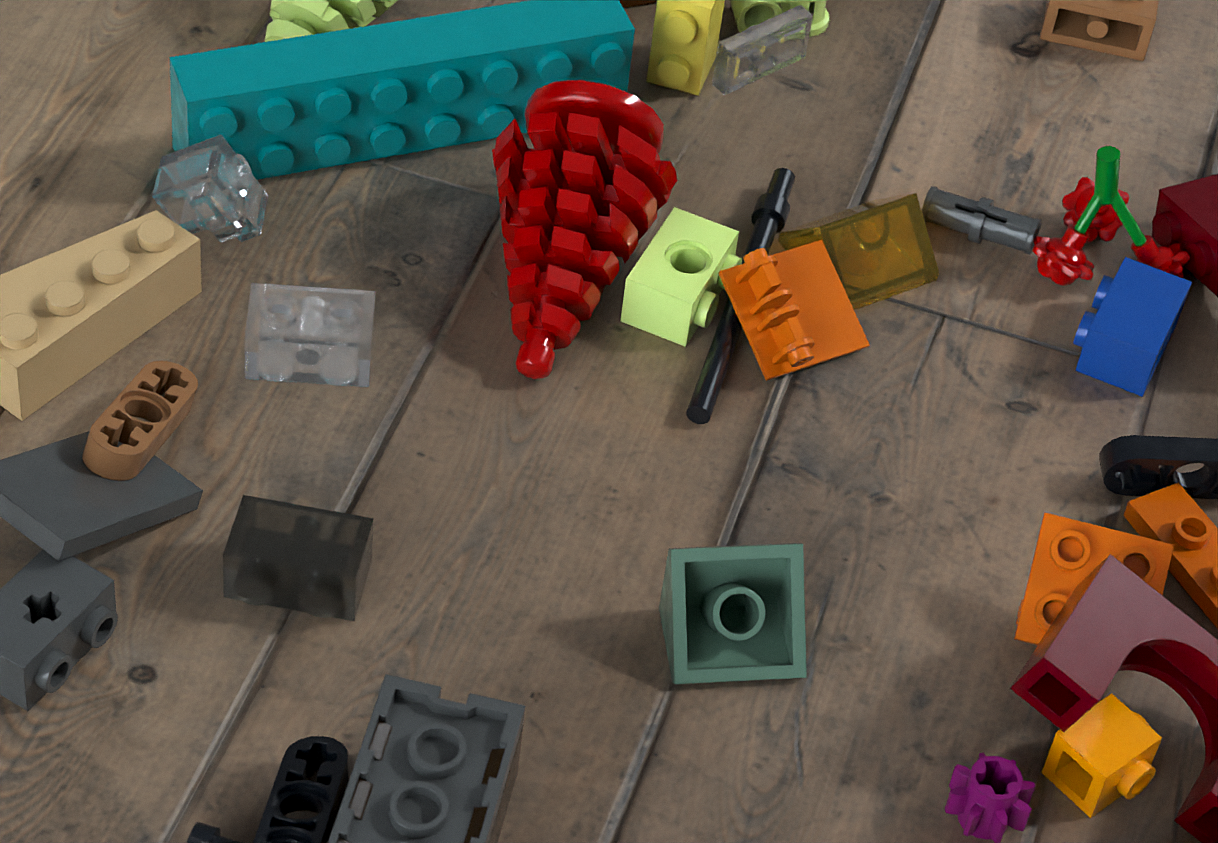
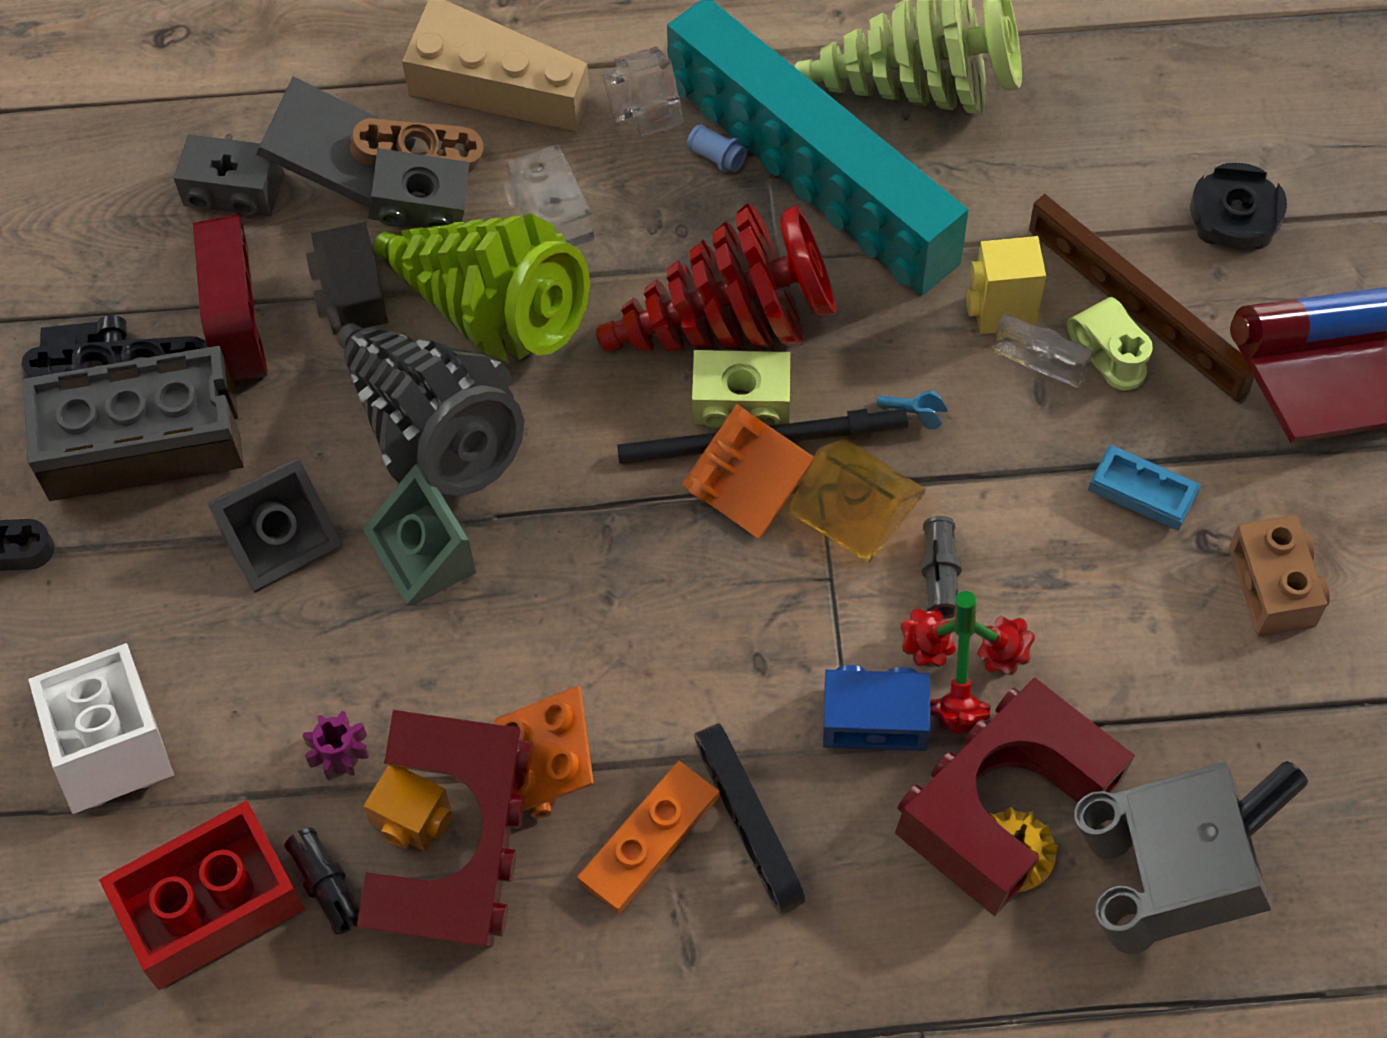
camera: 75 degrees right, 15 degrees up
(219, 438) = (438, 178): none -> dark grey brick
(247, 672) = (227, 296): none -> dark red beam
(330, 178) = (726, 153): none -> light blue pin
(431, 399) = (496, 280): none -> lime plant
(616, 504) = (435, 408): none -> dark grey plant
(641, 758) = (274, 524): none -> dark grey slope
(775, 149) = (924, 405): none -> dark azure hand
(956, 53) = (1144, 487): none -> dark azure plate

